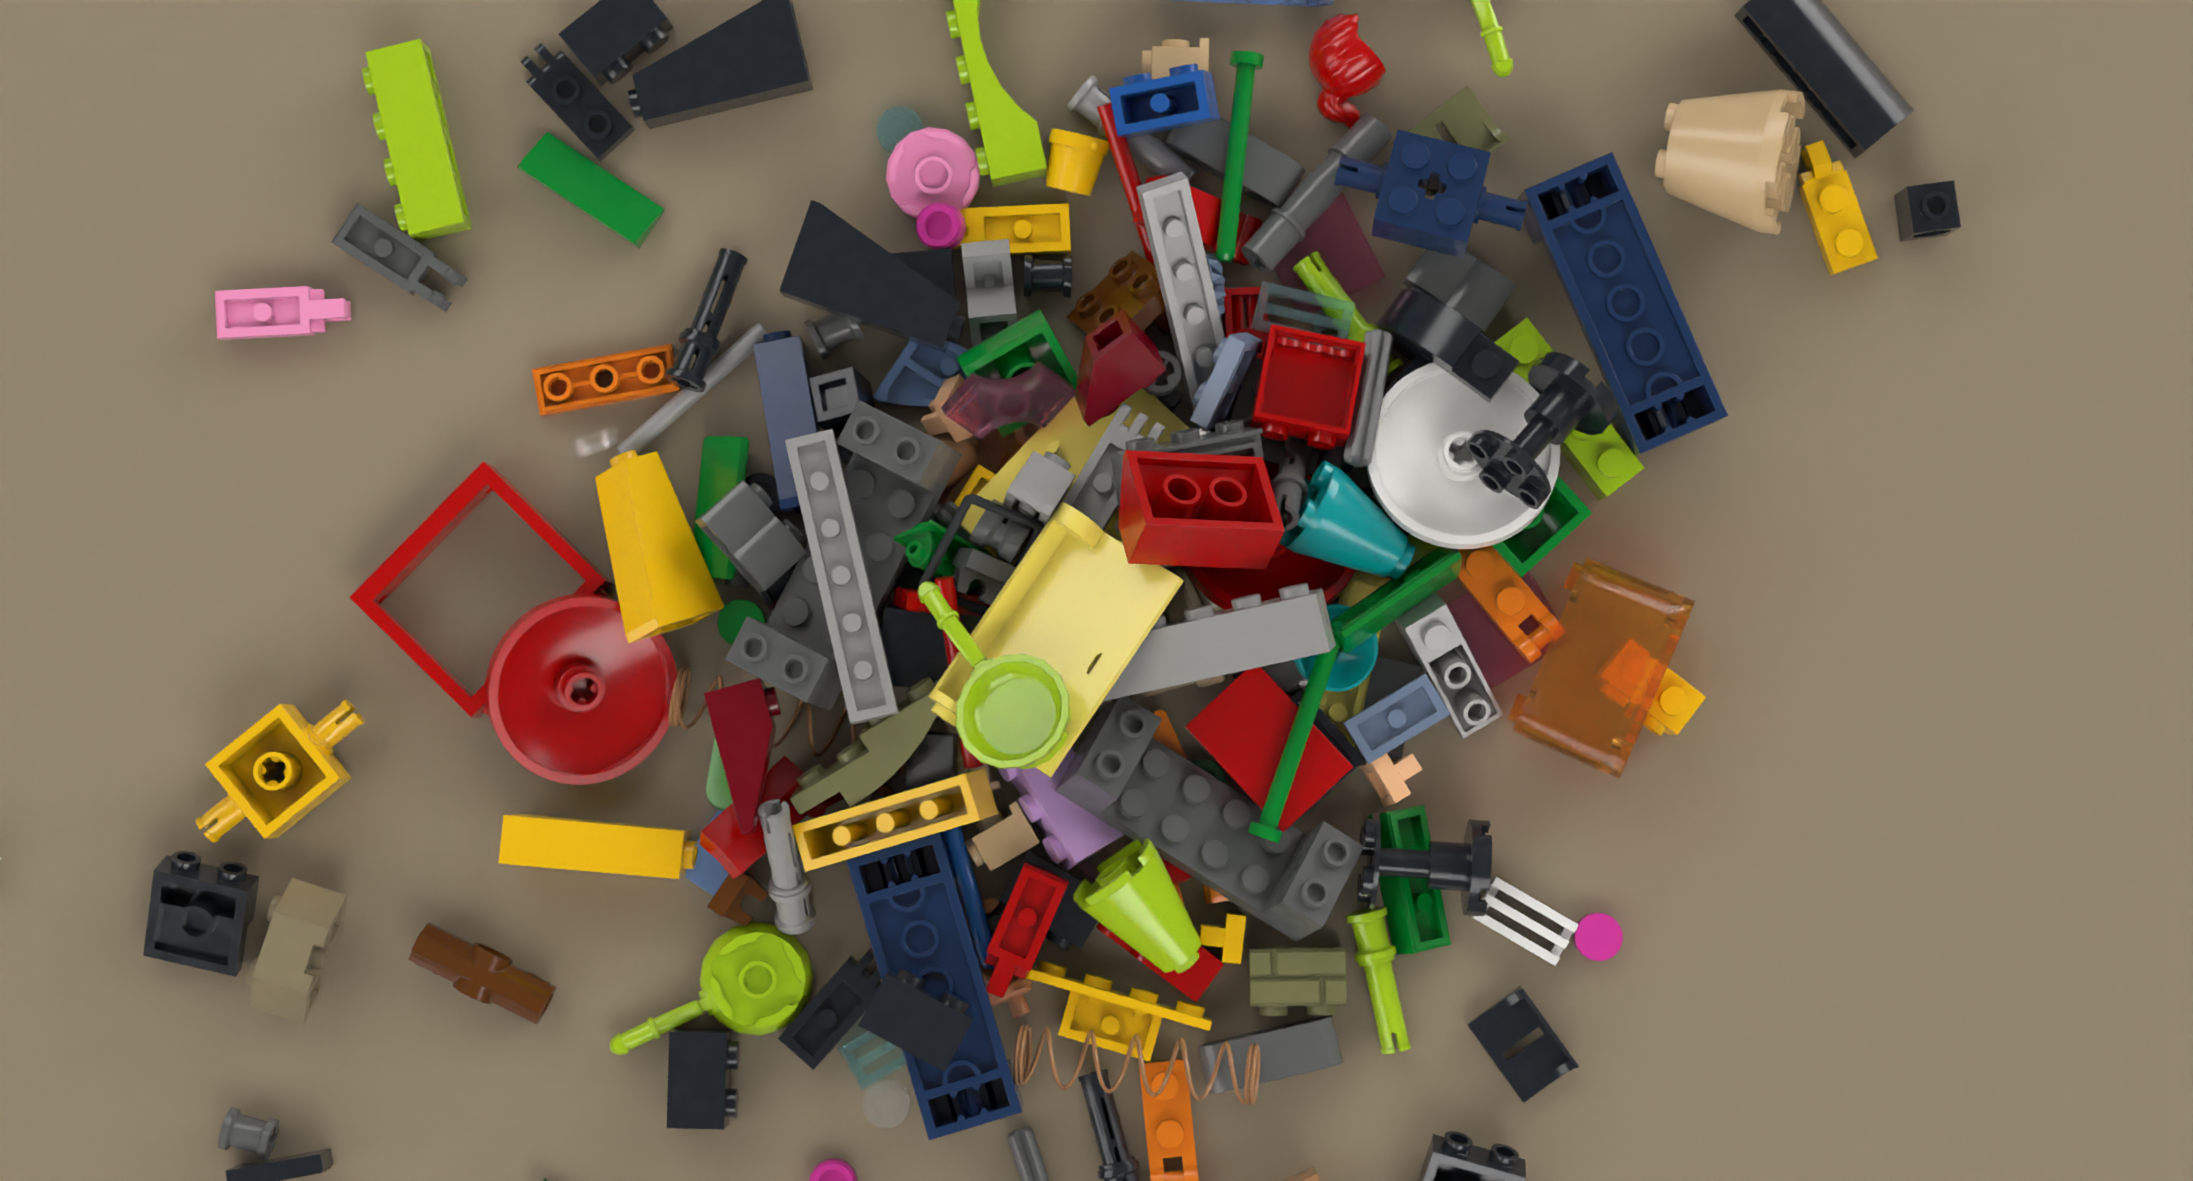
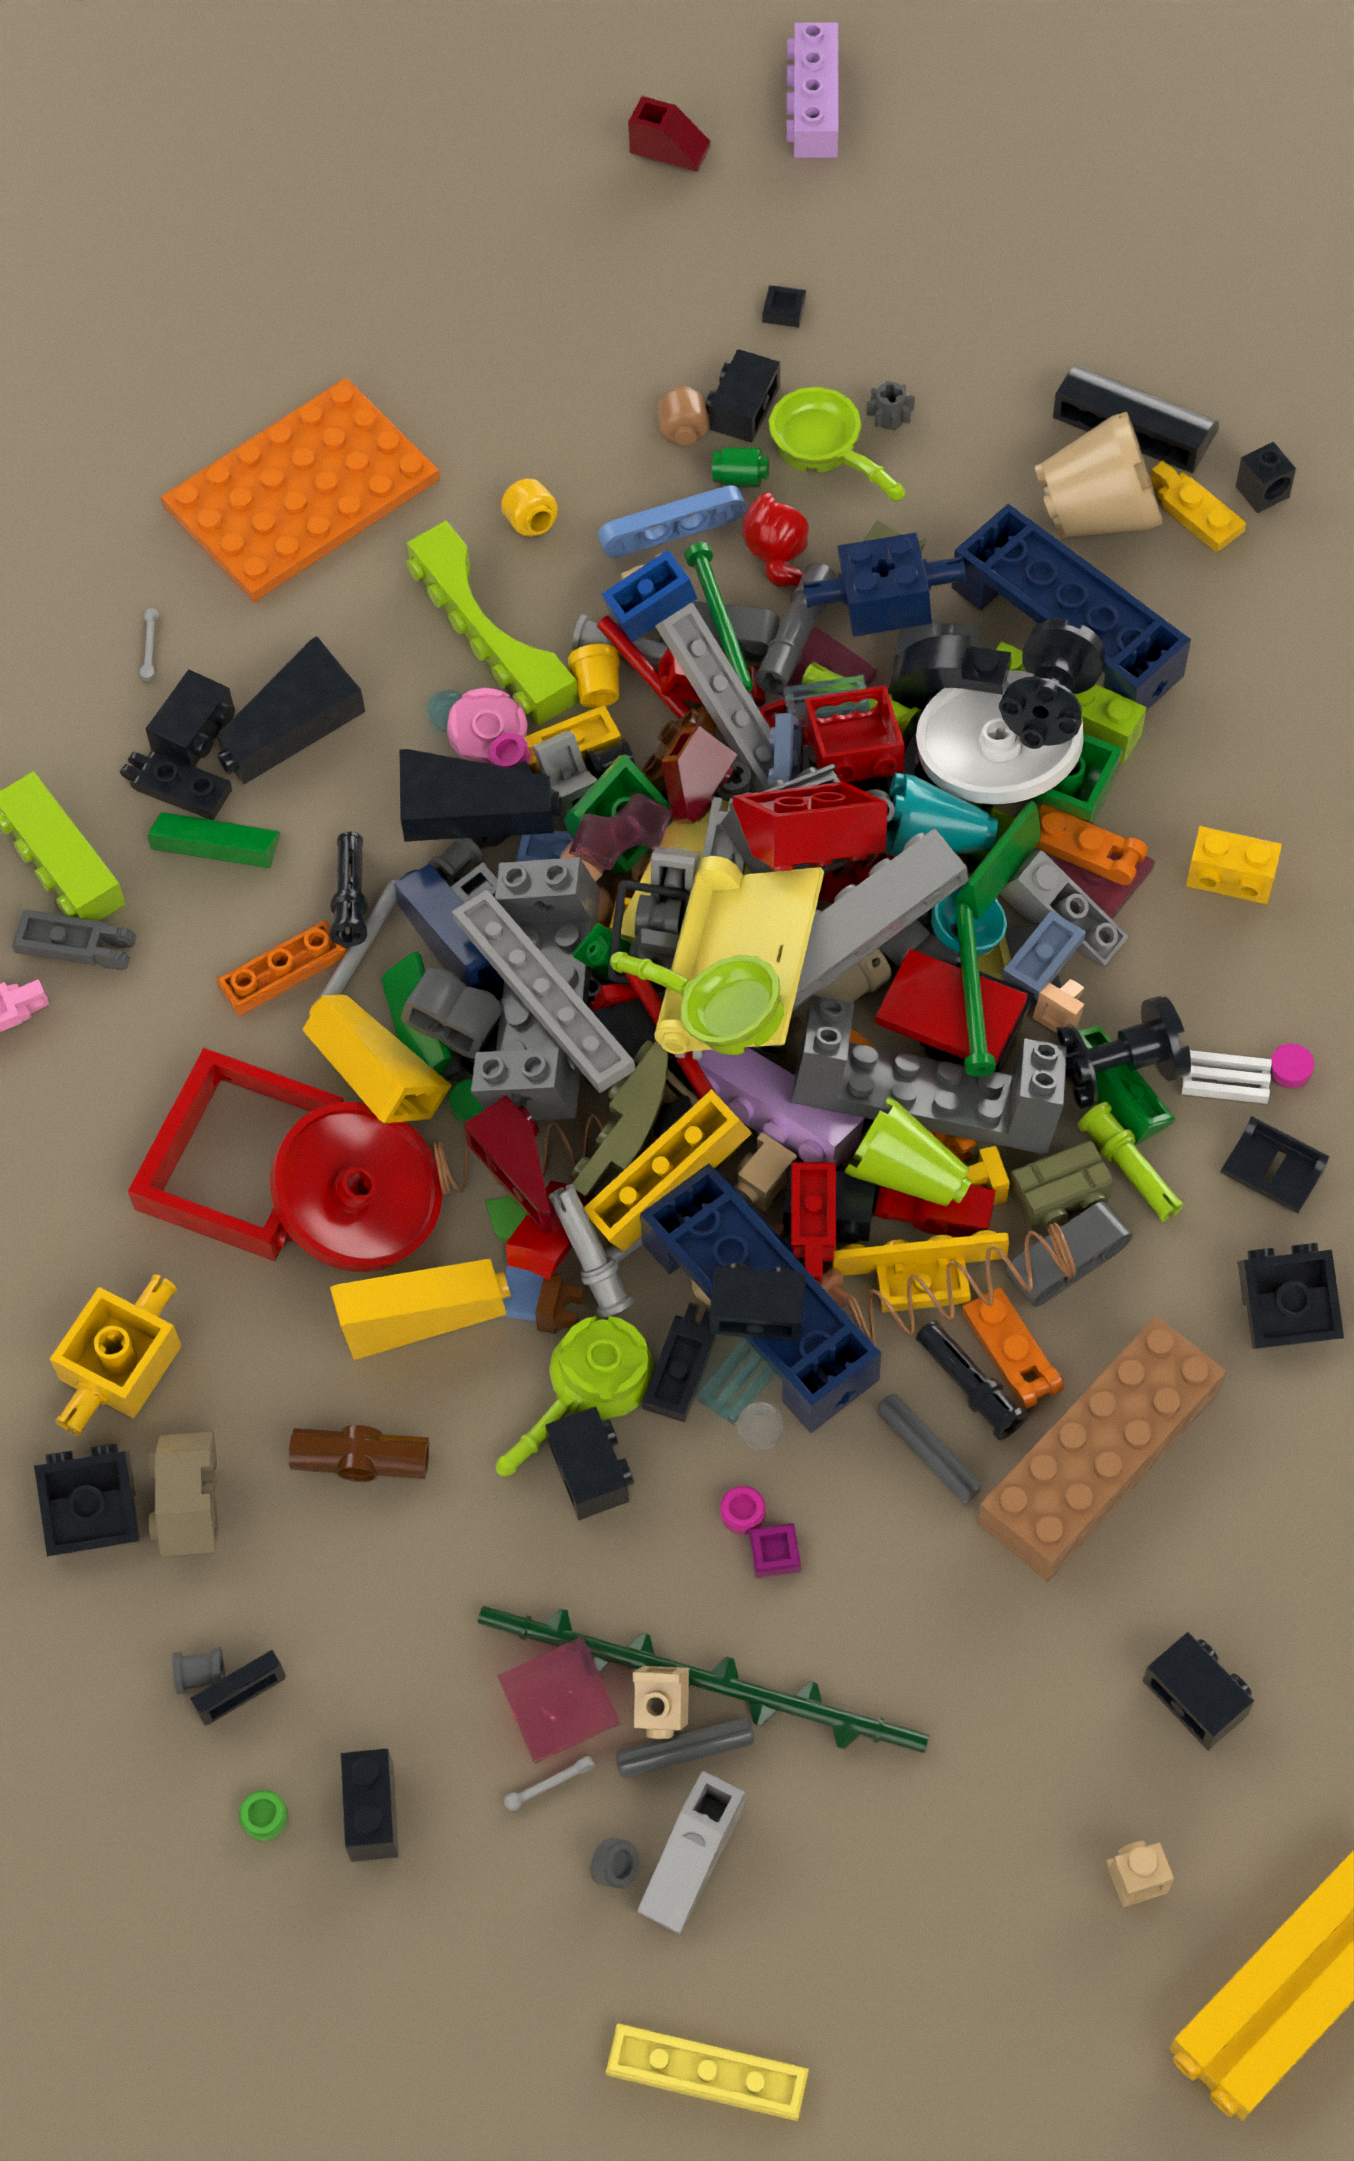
camera: 20 degrees left, 25 degrees down
(594, 443) = (290, 1010): clear tile -> none
(1369, 398) = (915, 749): dark grey axle -> none
(1602, 666) = (1189, 858): clear orange windscreen -> none

